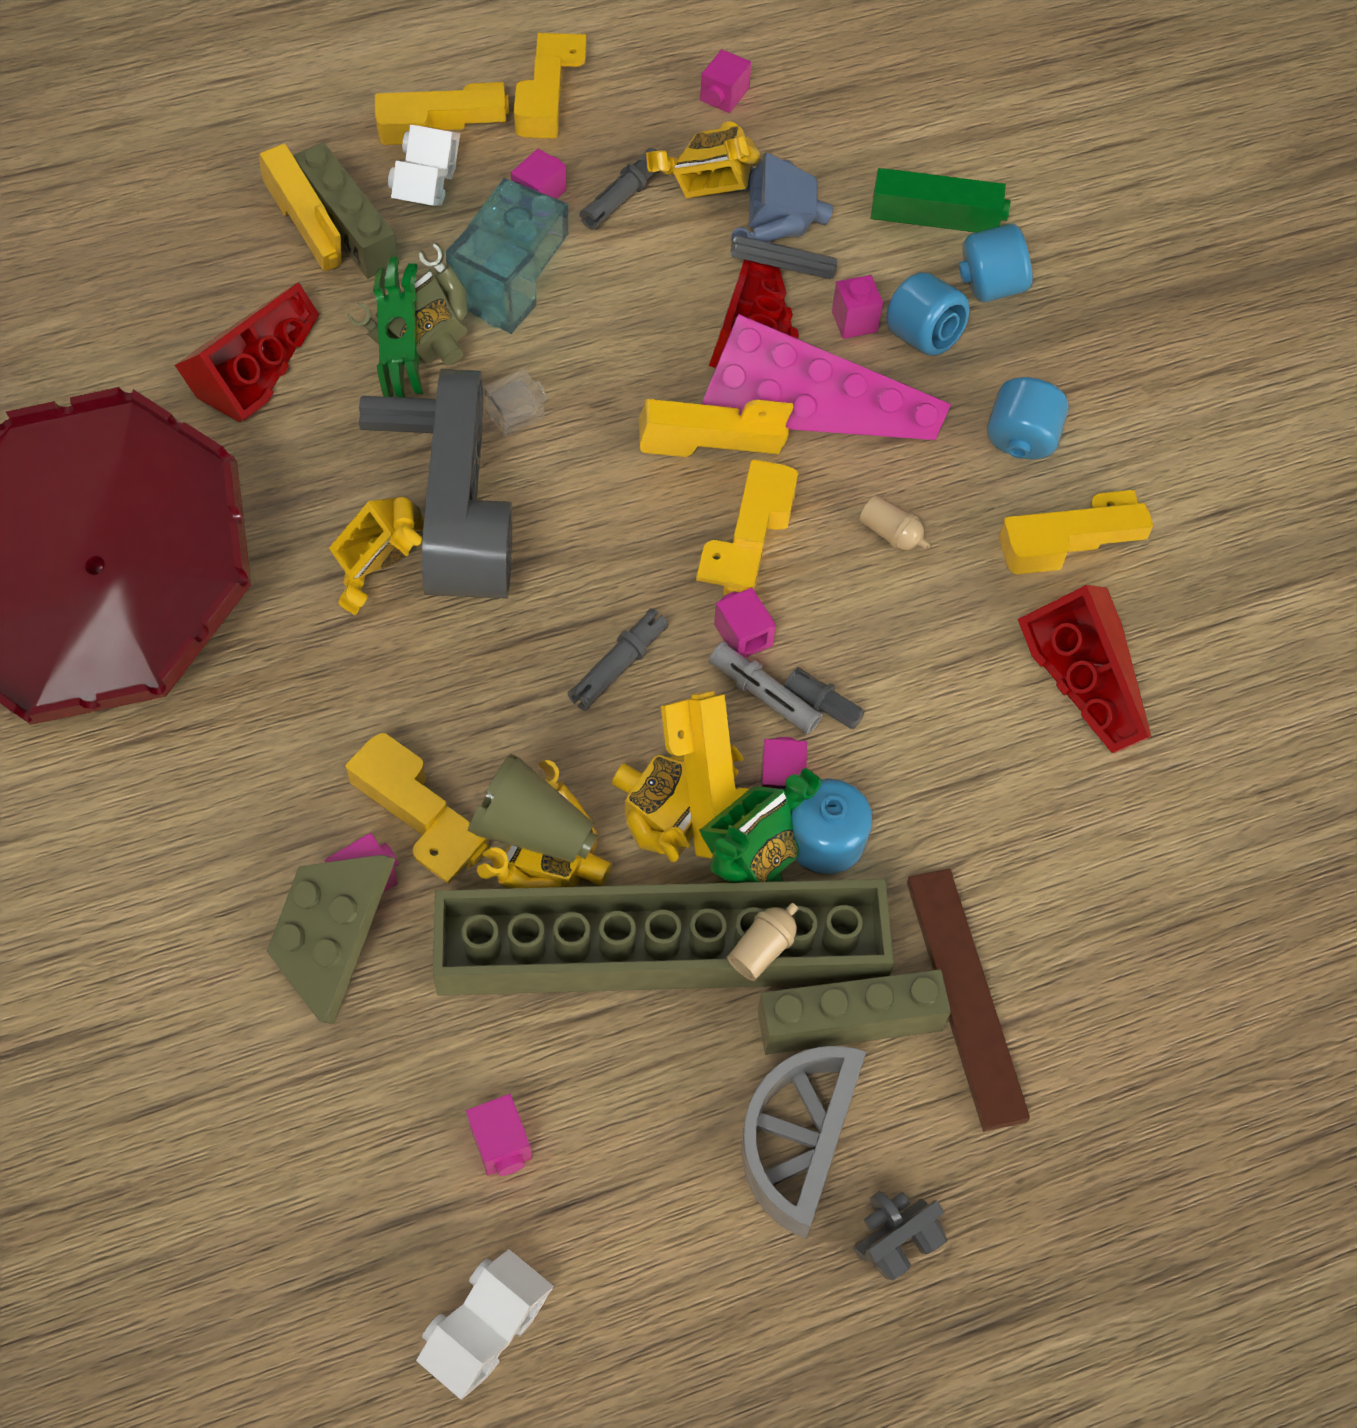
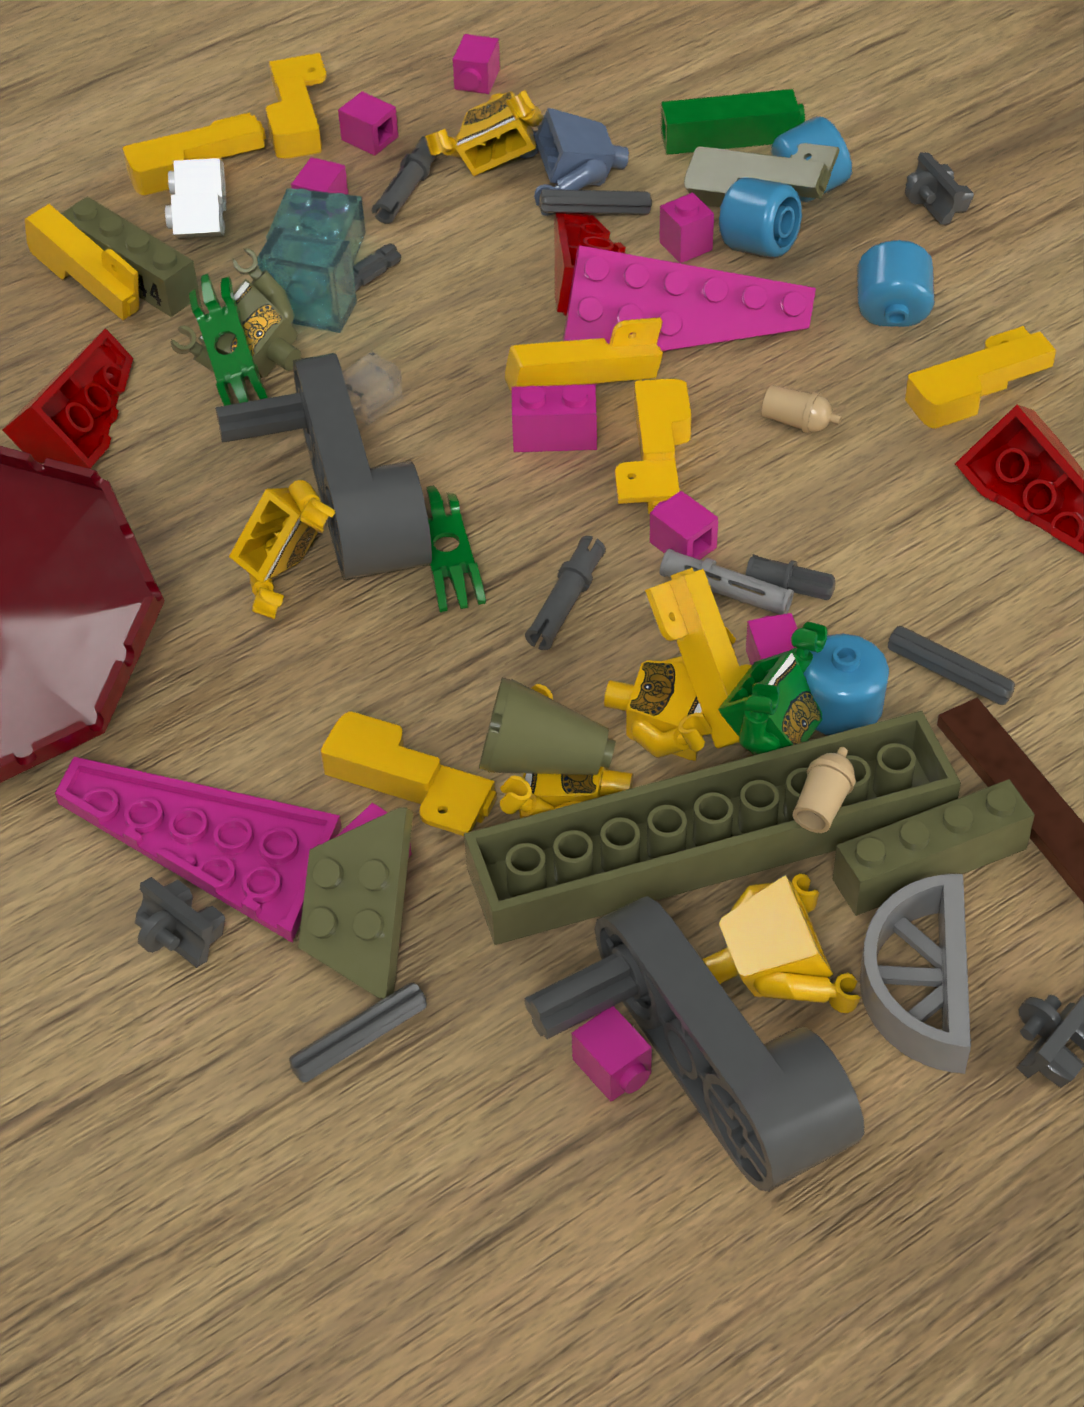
camera: 10 degrees left, 10 degrees down
(163, 901) = (171, 922): none -> dark grey hips
(229, 822) = (220, 840): none -> dark pink wing
(291, 1048) = (357, 1032): none -> dark grey axle
(468, 1342) = (673, 1219): white brick -> none
(529, 601) = (453, 562): none -> green piece
(561, 273) = (375, 264): none -> dark grey axle
(605, 121) = (368, 123): none -> dark pink brick
(614, 1229) = (767, 1103): none -> dark grey beam
(667, 477) = (554, 418): none -> dark pink brick
(677, 1072) = (778, 948): none -> yellow torso
(904, 255) = (716, 169): none -> piece
(939, 827) = (951, 665): none -> dark grey axle
(1103, 321) = (937, 190): none -> dark grey hips

